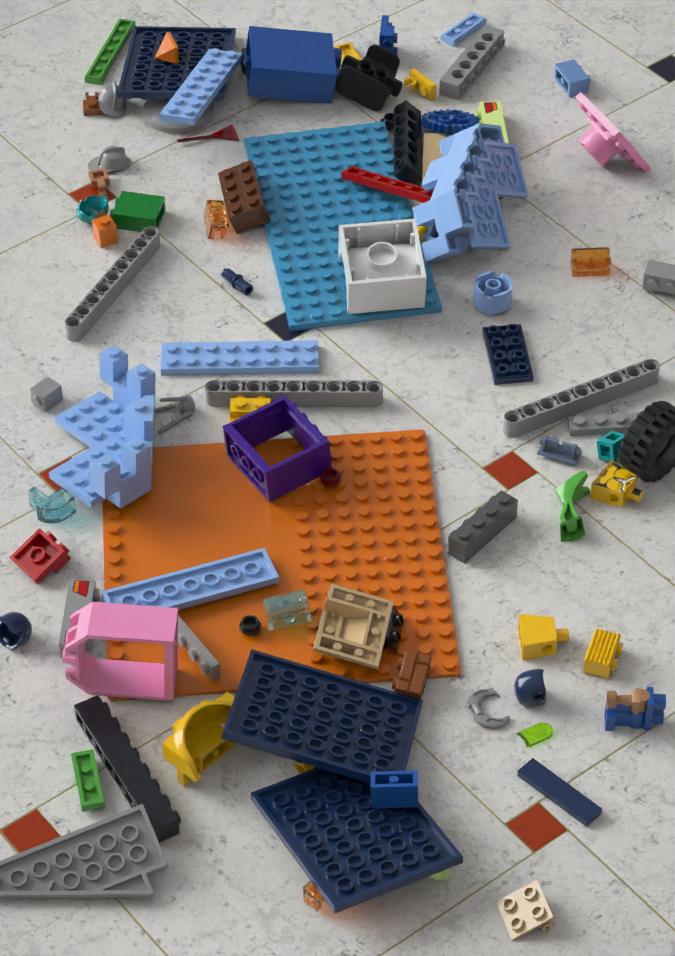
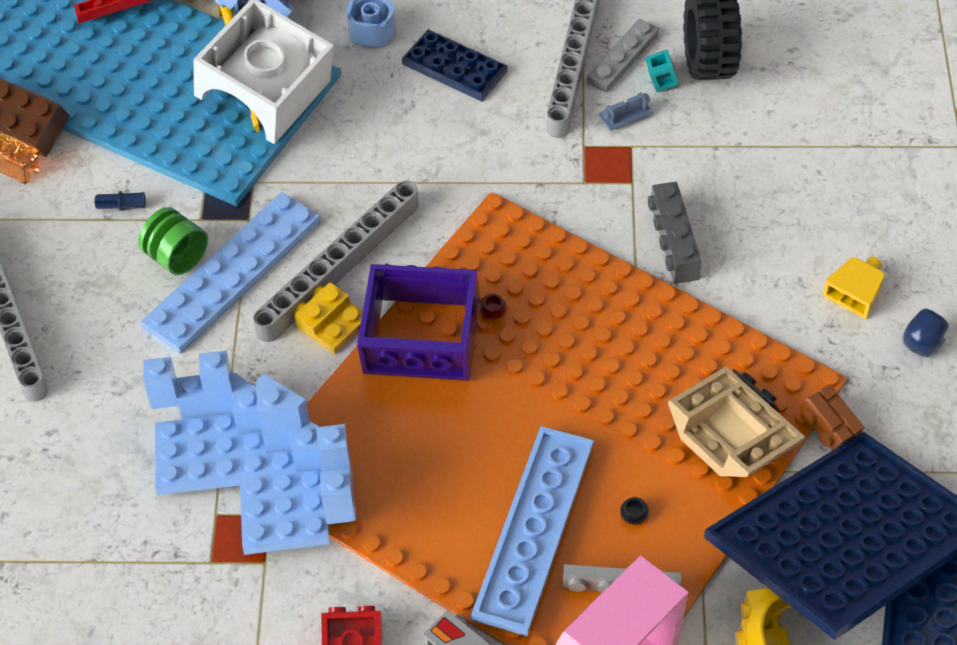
camera: 50 degrees left, 10 degrees up
(46, 394) = (106, 474): light grey brick -> none
(54, 507) = (287, 583): clear light blue brick -> none
(183, 404) = (255, 362): light grey plant -> none
(225, 315) = (173, 240): none -> bright green wheel
(287, 609) = (649, 463): clear light blue brick -> none
(483, 719) = (894, 392): light grey piece -> none
(568, 494) = (722, 162): bright green animal -> none
(602, 653) = (921, 253): yellow brick -> none
(615, 486) = (714, 101): yellow torso -> none

